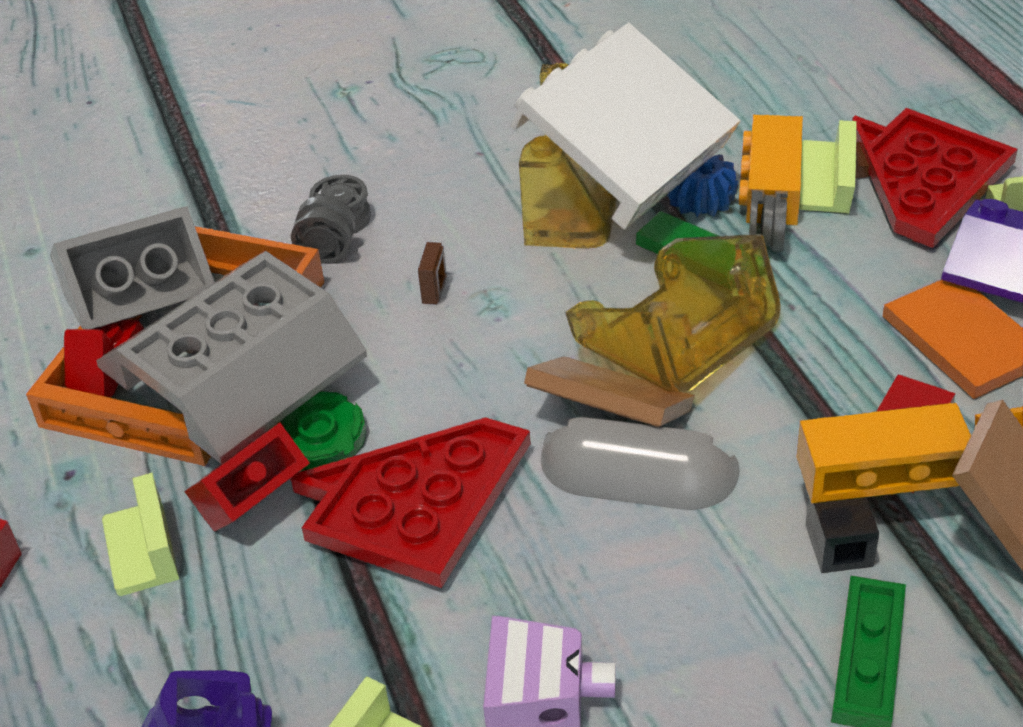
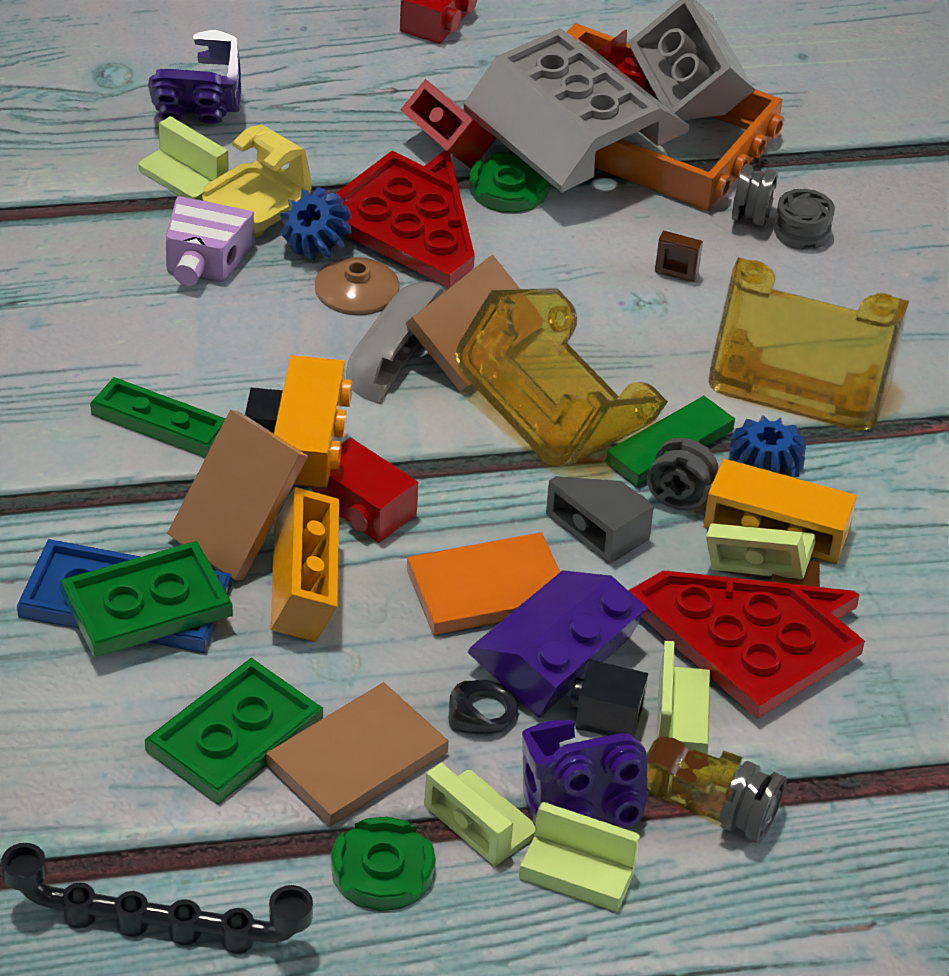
camera: 95 degrees right, 0 degrees up
(140, 541) = (401, 83): yellowish green panel -> none
(415, 644) = (262, 184): none -> light yellow piece
(482, 560) = (316, 223): none -> blue gear
(546, 530) = (356, 285): none -> medium nougat dish
(628, 119) = (792, 340): white panel -> none
(844, 265) = (600, 514): none -> dark grey slope

